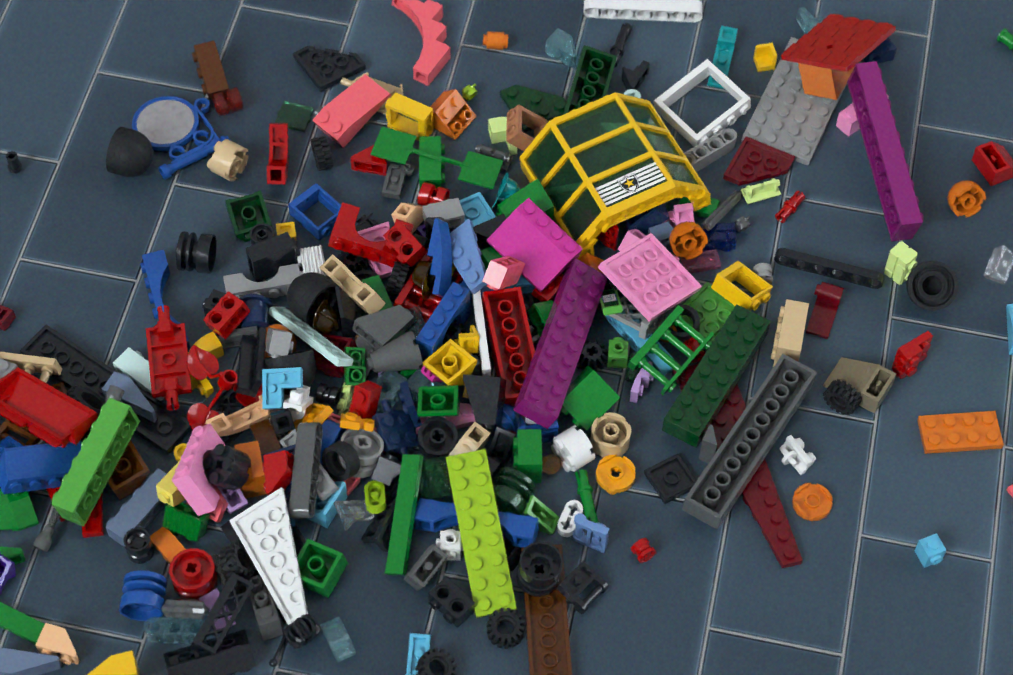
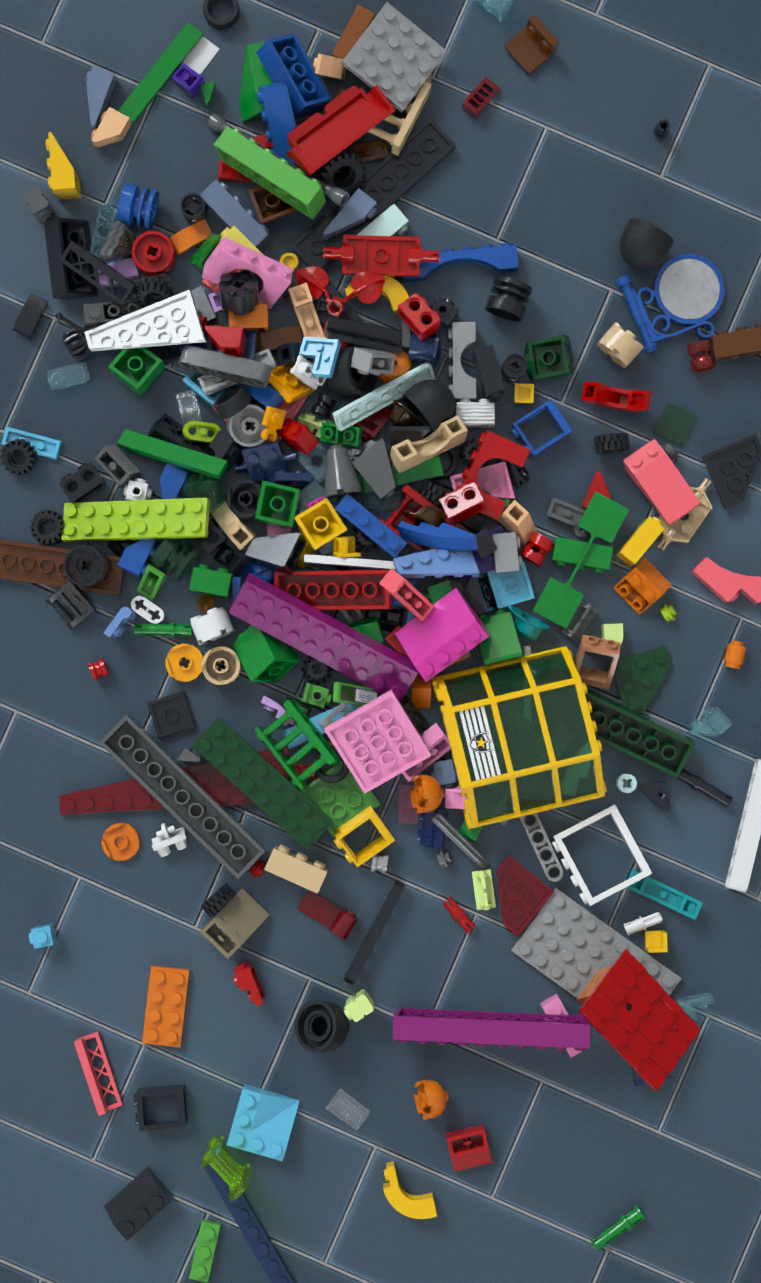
camera: 105 degrees right, 30 degrees up
(752, 70) = (642, 923): none -> white axle

